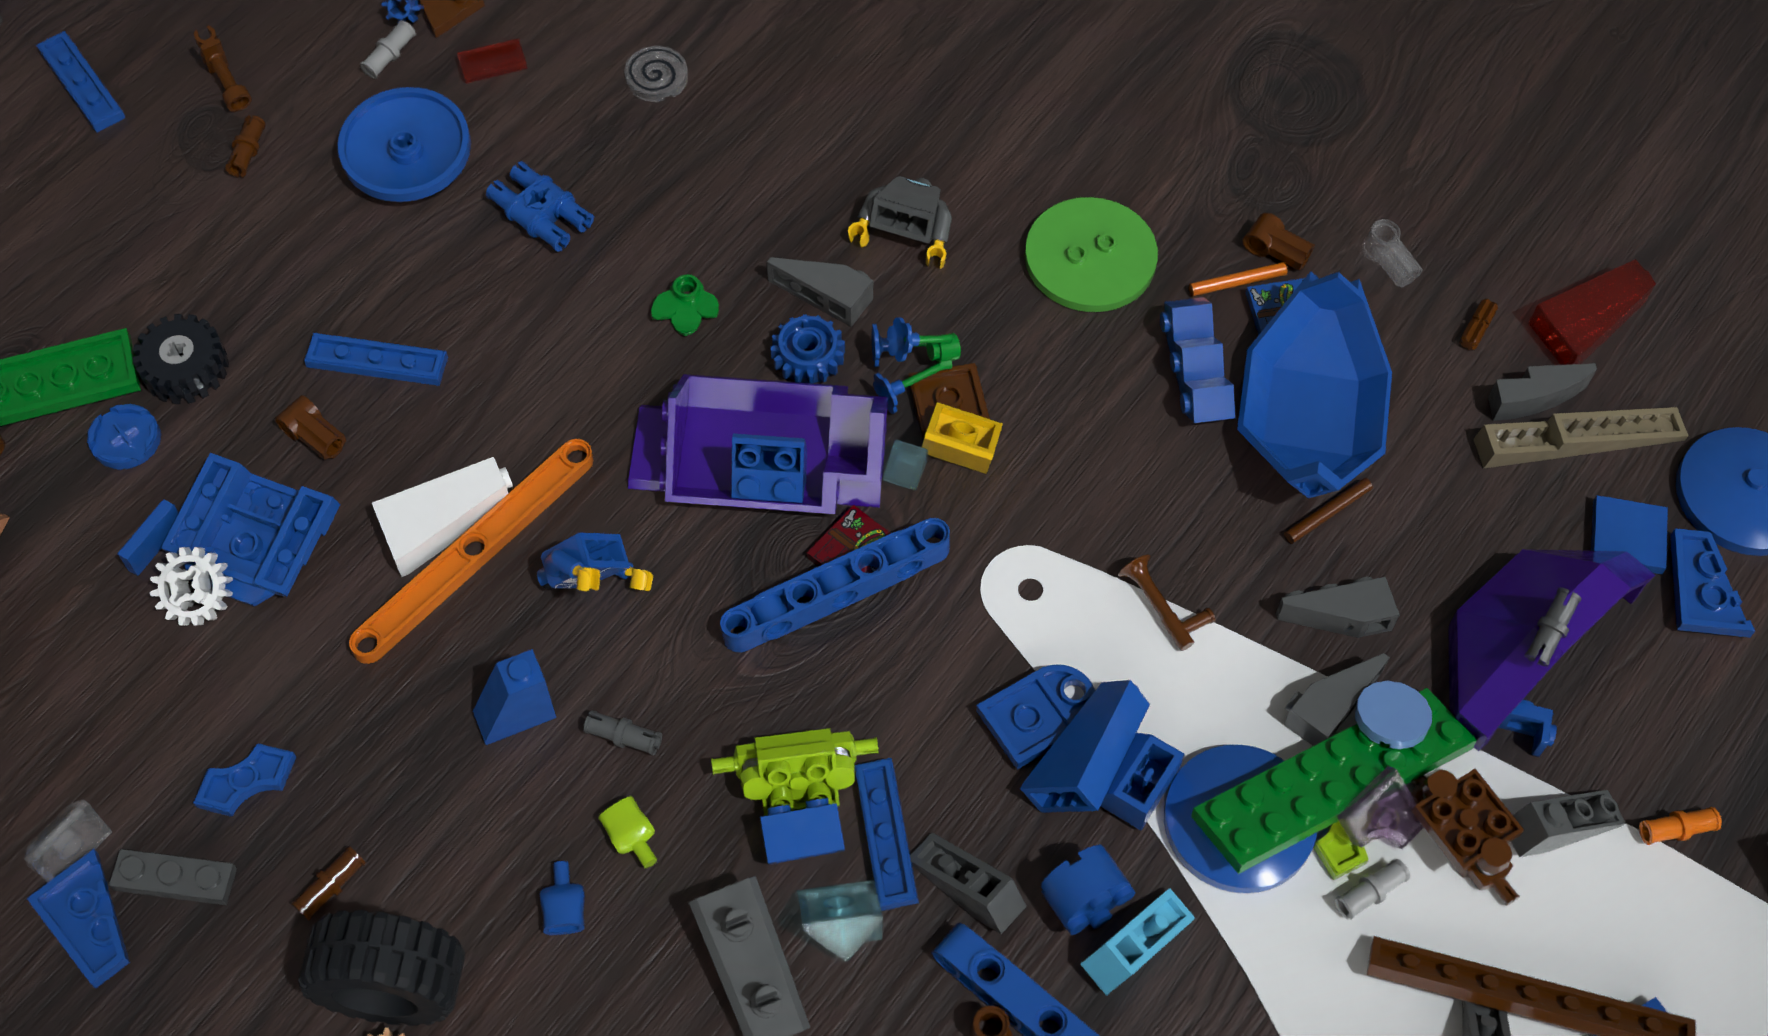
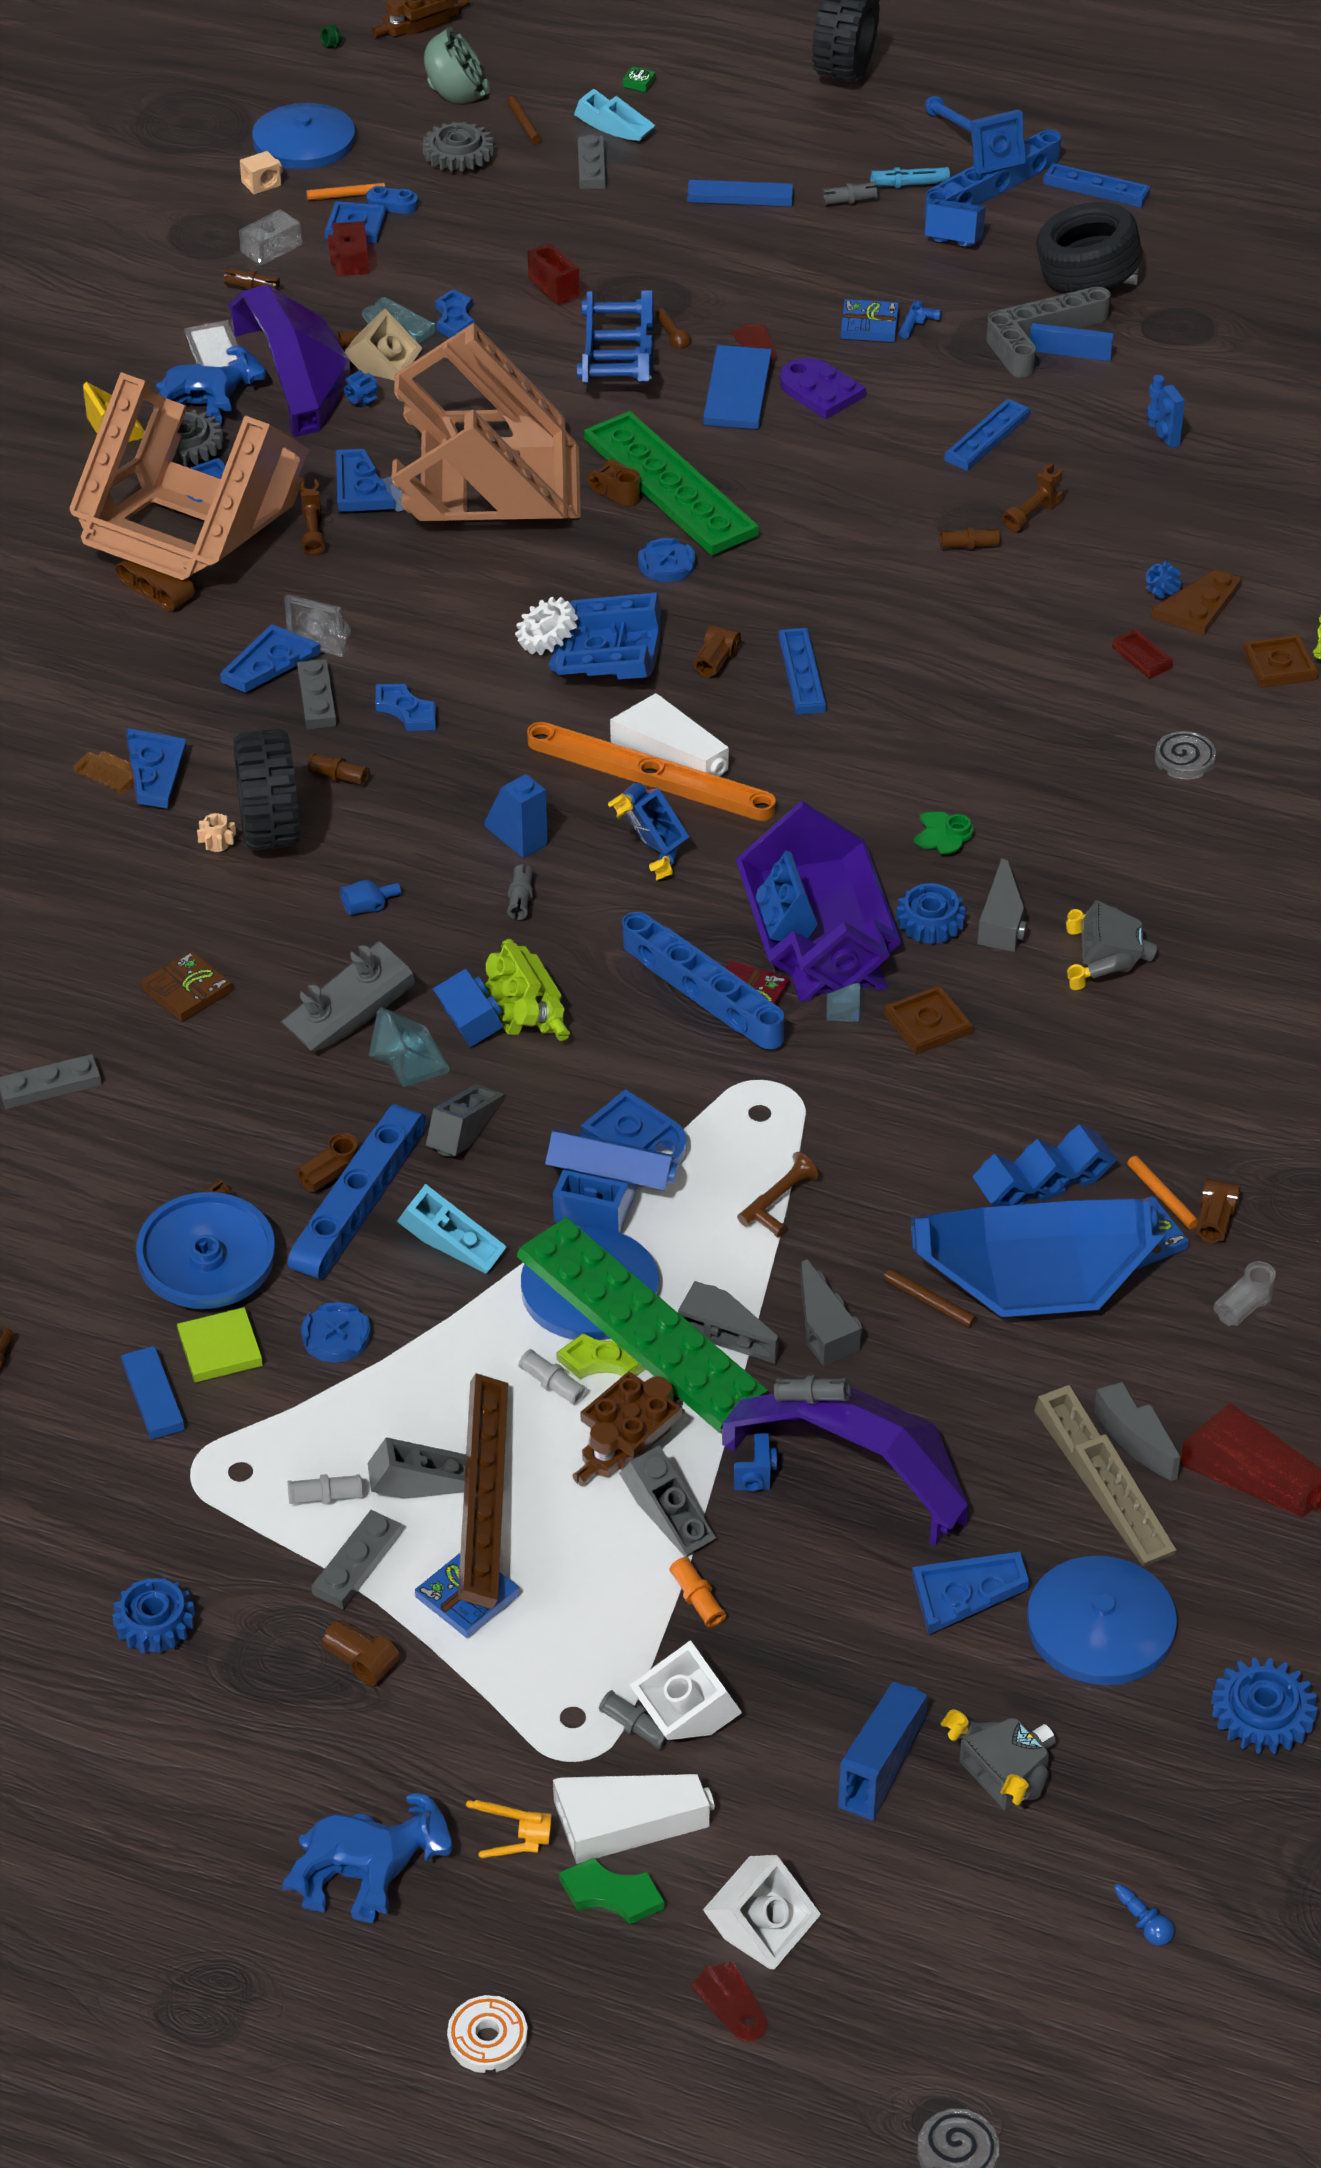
camera: 75 degrees right, 15 degrees down
(148, 538) = (578, 590): blue tile -> none
(175, 375) = (745, 563): black wheel -> none
(387, 49) = (1115, 587): light grey pin -> none
(404, 144) = (1013, 619): blue dish -> none
(539, 206) = (997, 718): blue pin -> none
(629, 830) = (439, 915): lime piece -> none
(886, 834) = (491, 1063): blue tile -> none
(899, 343) = (952, 952): plant -> none
(962, 437) = (883, 1024): yellow slope -> none
(1086, 890) = (477, 1179): blue brick -> none
(1091, 254) = (1137, 1083): bright green plate -> none
(1382, 812) = (617, 1351): clear purple tile -> none
(1393, 714) = (716, 1348): medium blue tile -> none
(1478, 324) = (1208, 1380): reddish brown piece -> none
(1631, 528) = (1005, 1525): blue tile -> none

